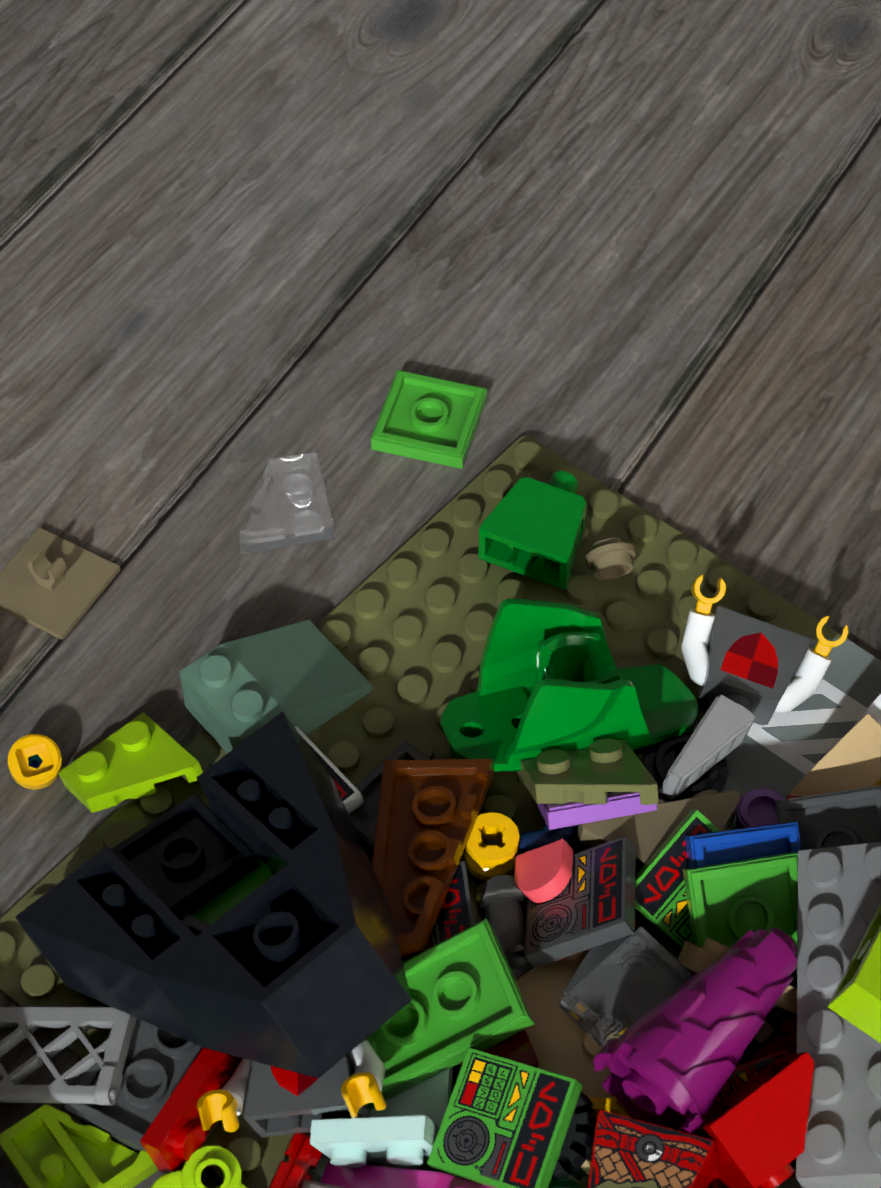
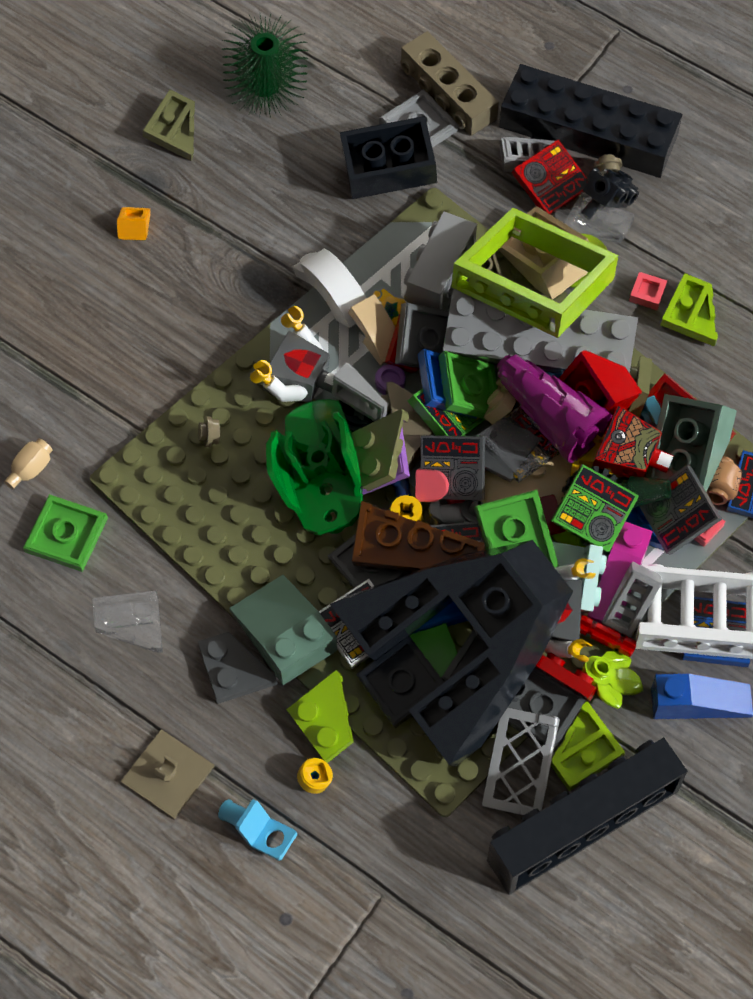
camera: 85 degrees left, 10 degrees up
(205, 629) = (233, 668): none -> dark grey wing
(534, 356) = (29, 462): none -> tan plant
(536, 529) = (182, 467): green torso -> none

